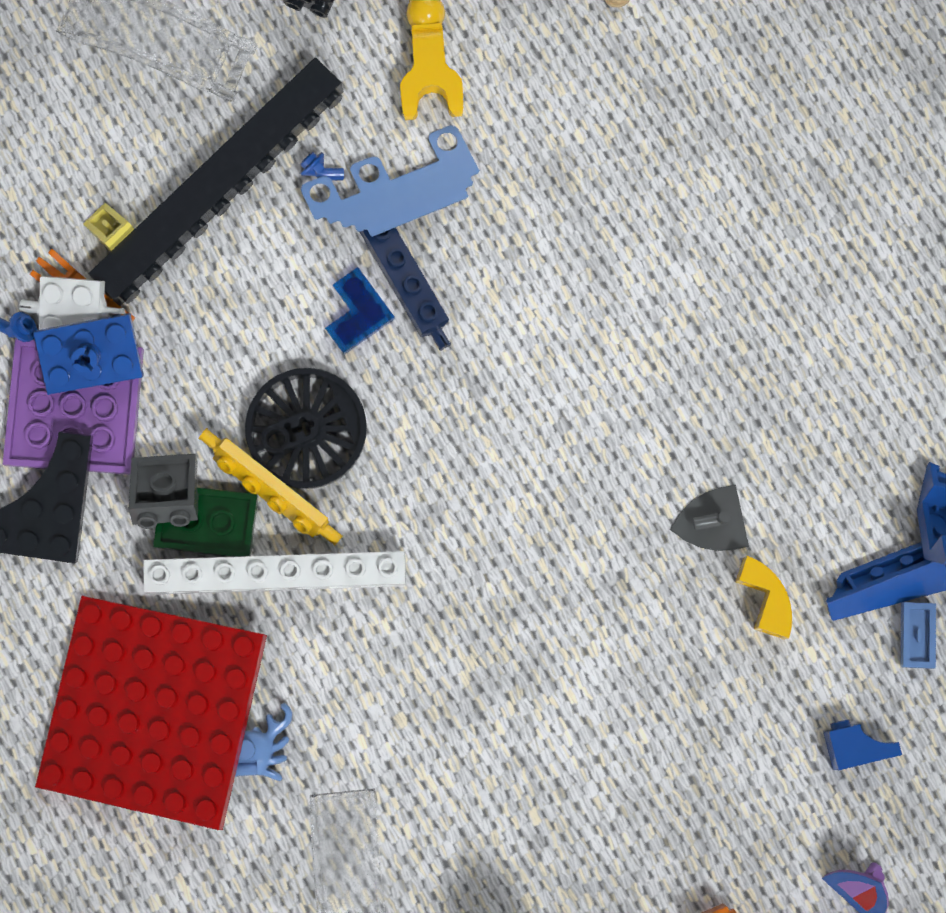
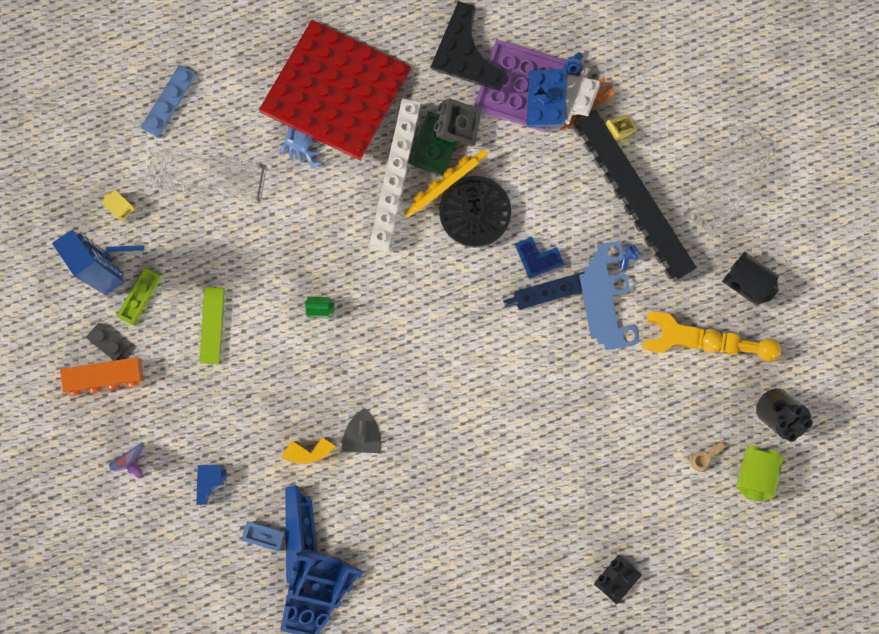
camera: 105 degrees right, 0 degrees up
(528, 641) = (319, 307): none -> green brick
(602, 814) = (212, 325): none -> lime tile
(829, 75) = (617, 579): none -> black bracket

